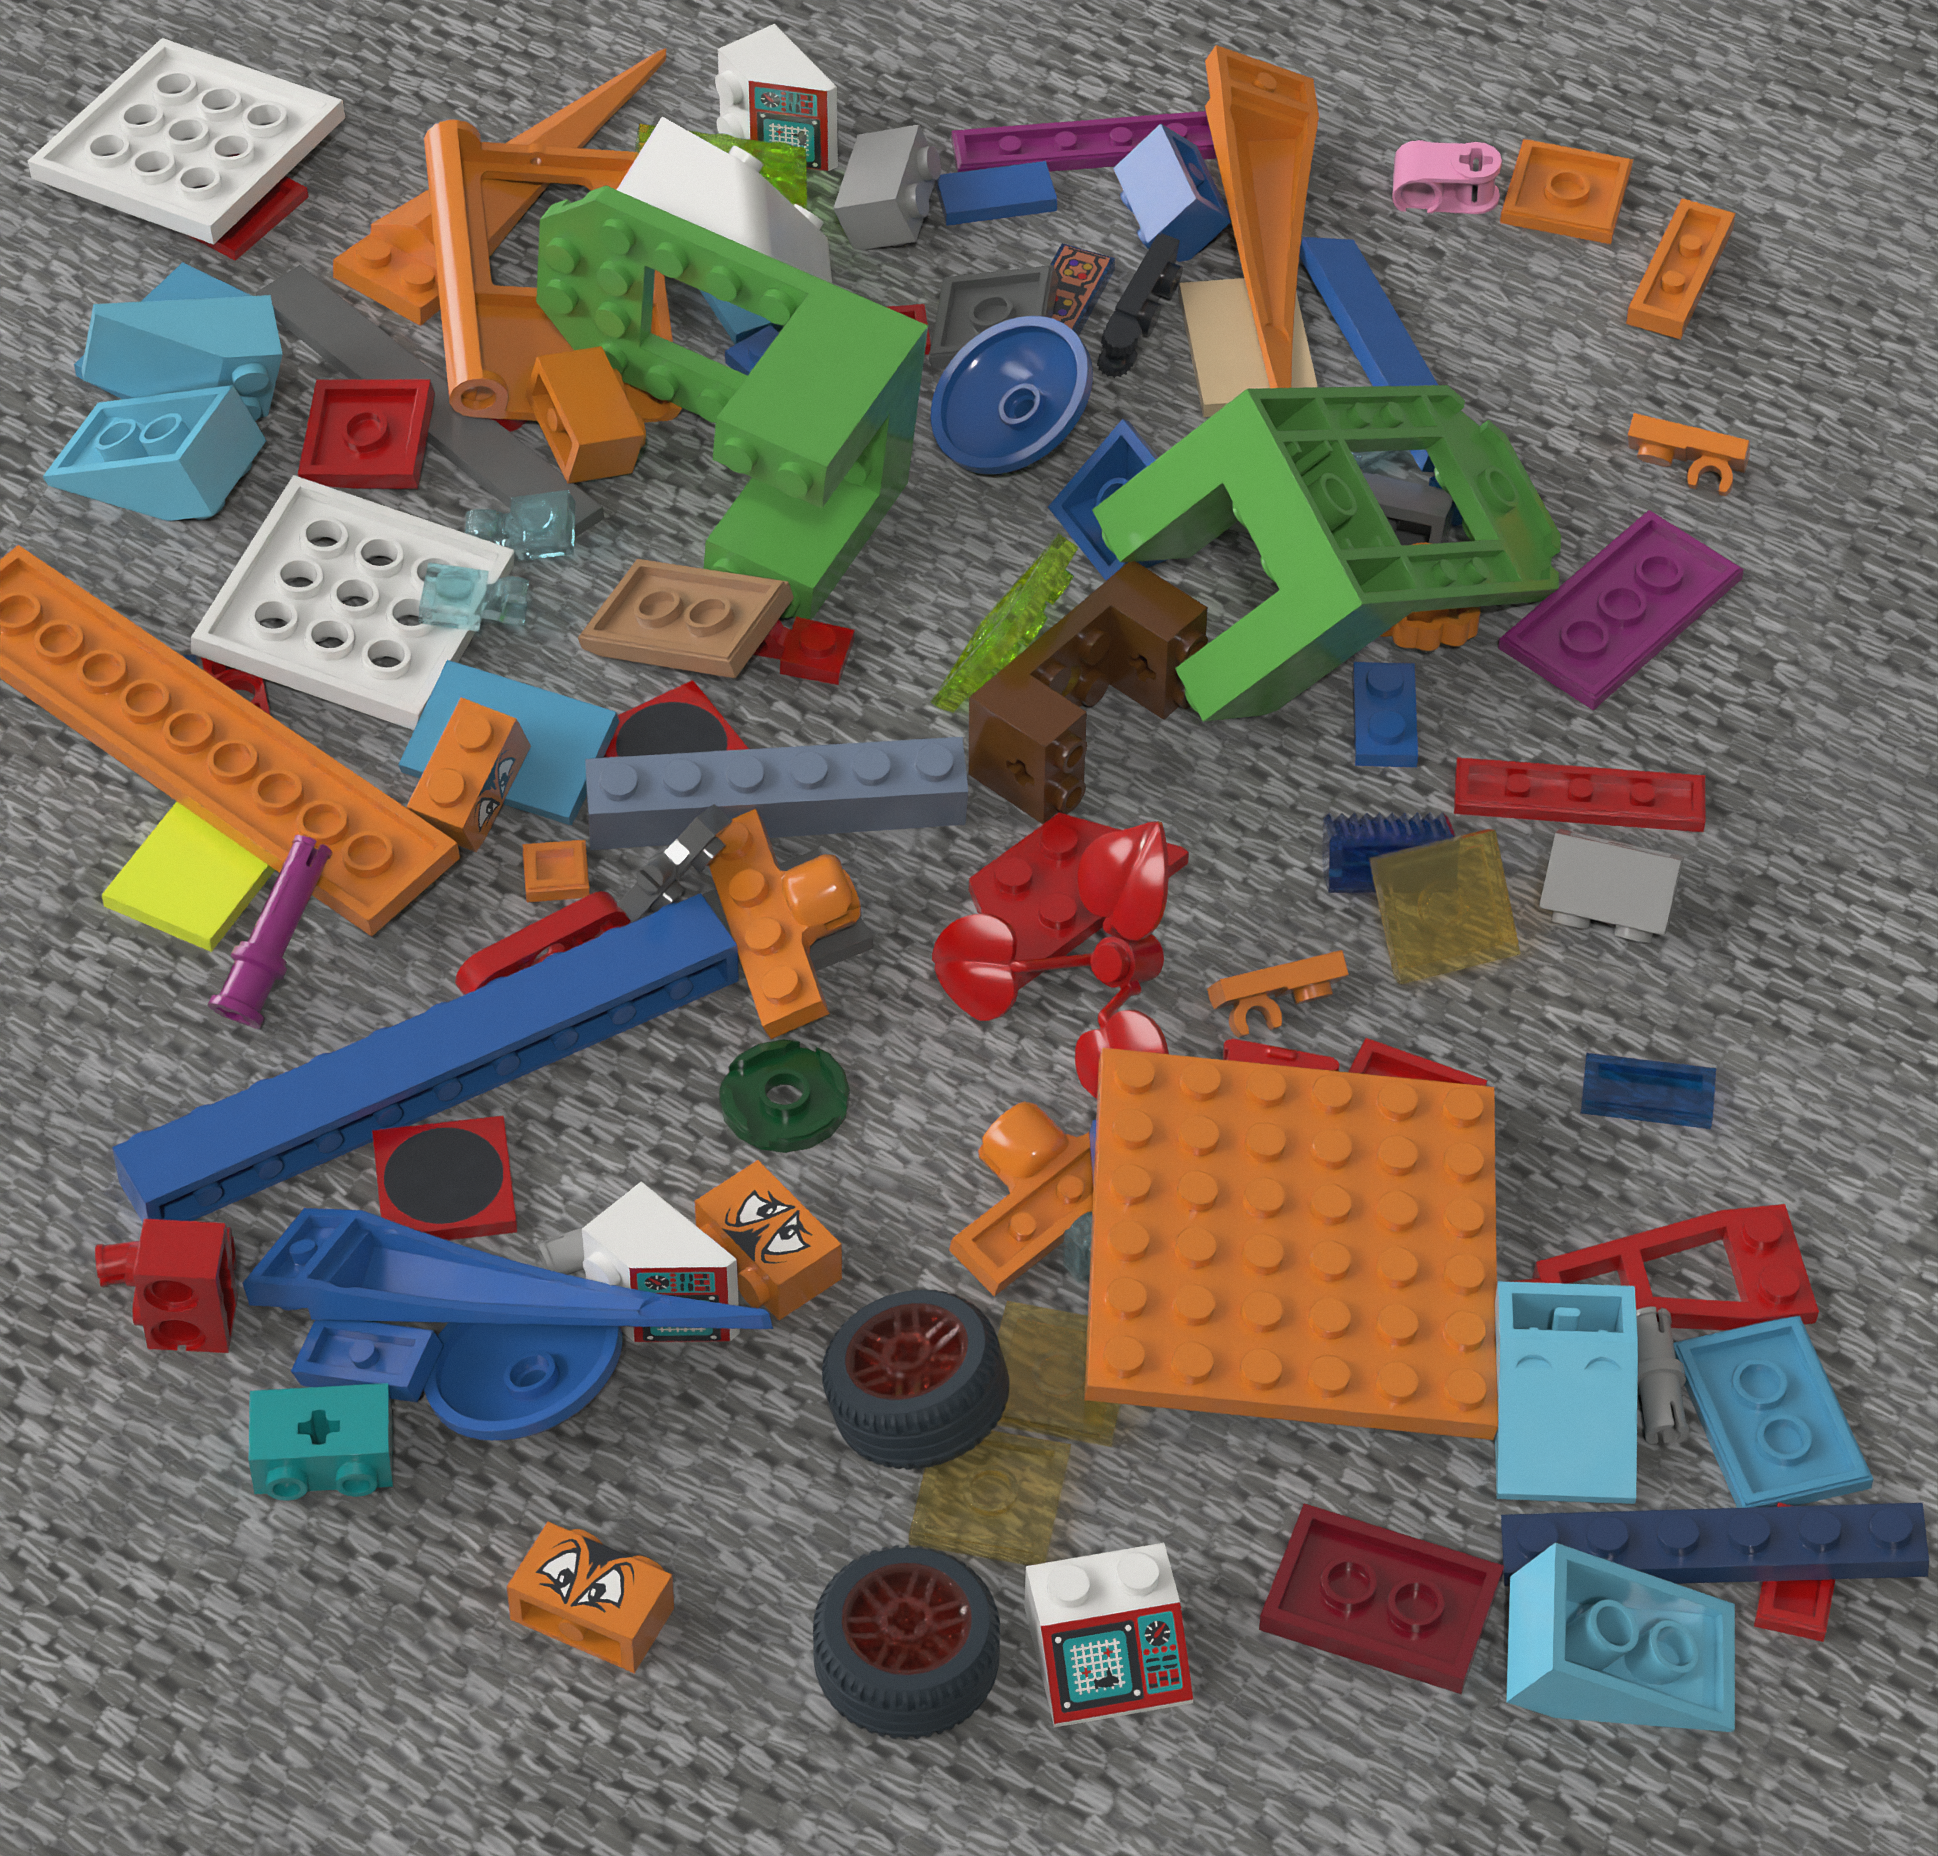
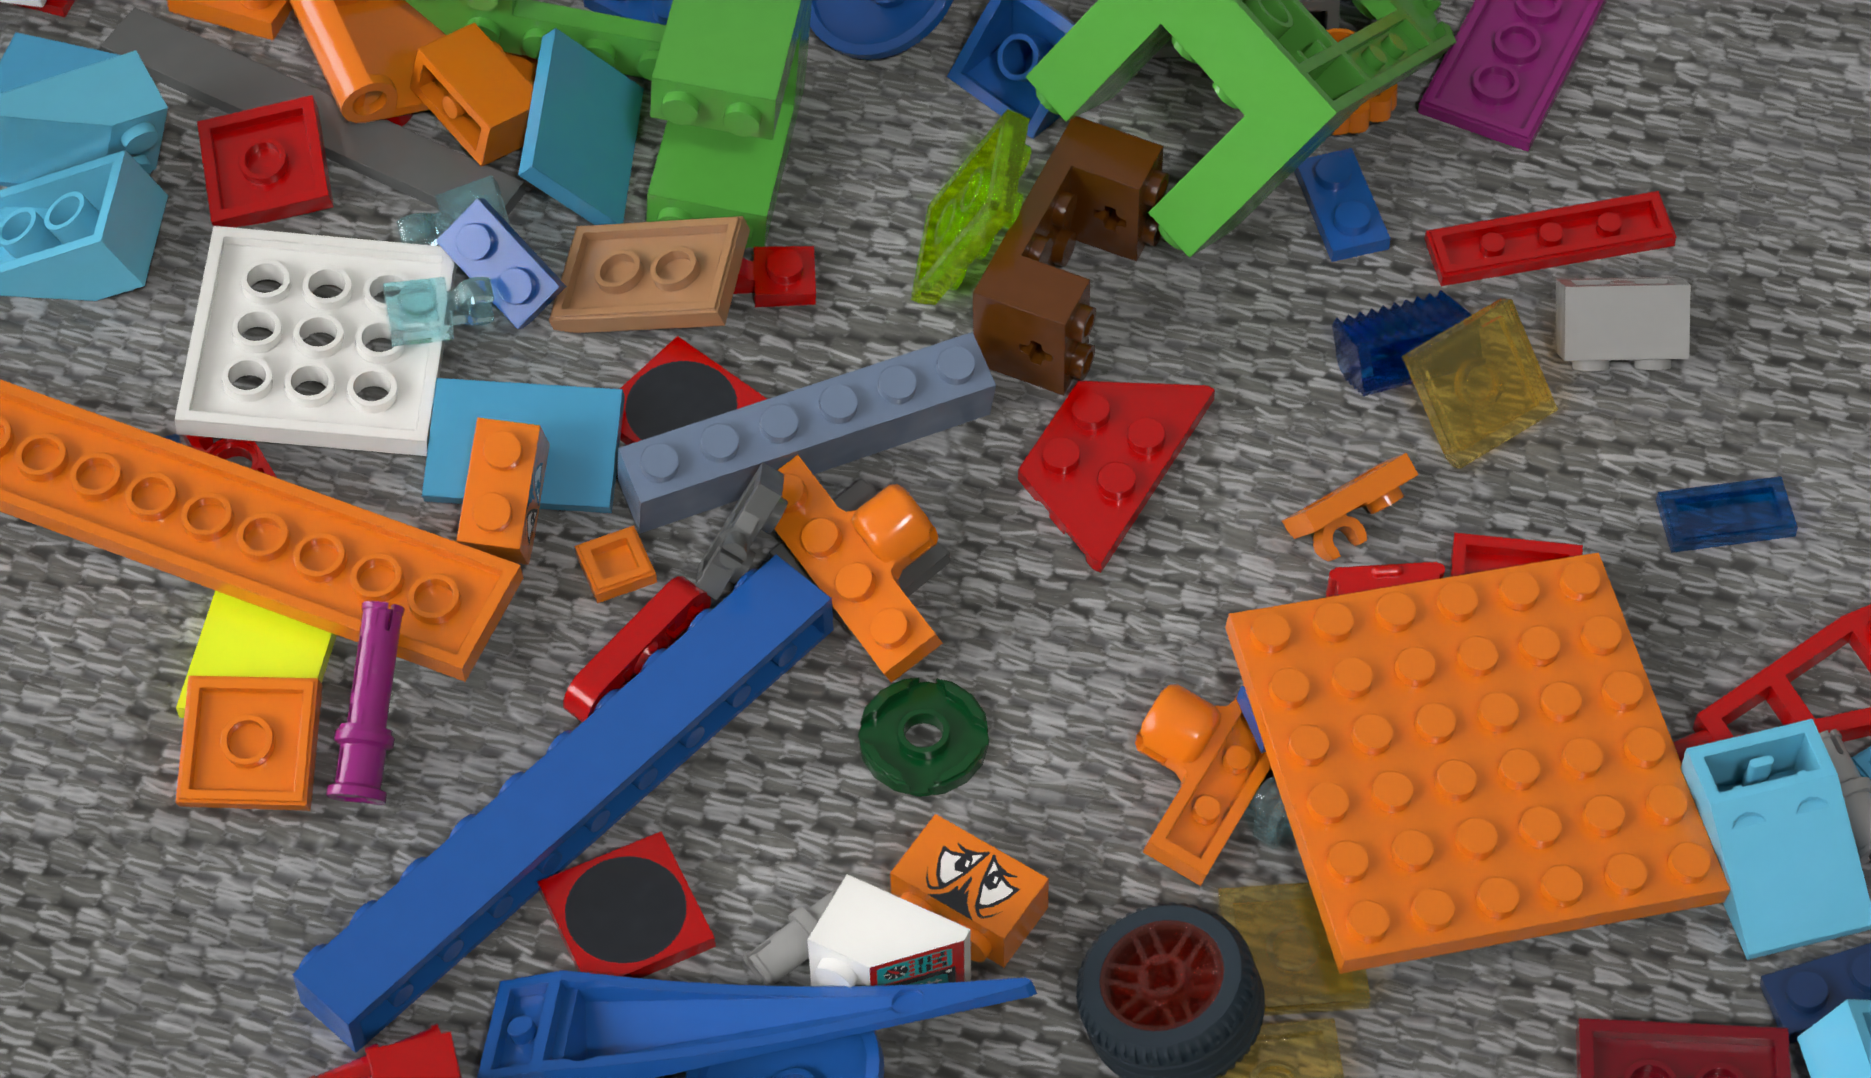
camera: 15 degrees left, 5 degrees up
(155, 941) = (249, 742): none -> orange tile
(557, 583) = (491, 248): none -> plate
(664, 472) = (581, 130): none -> dark azure tile
(1118, 879) = (1192, 442): red plant -> none

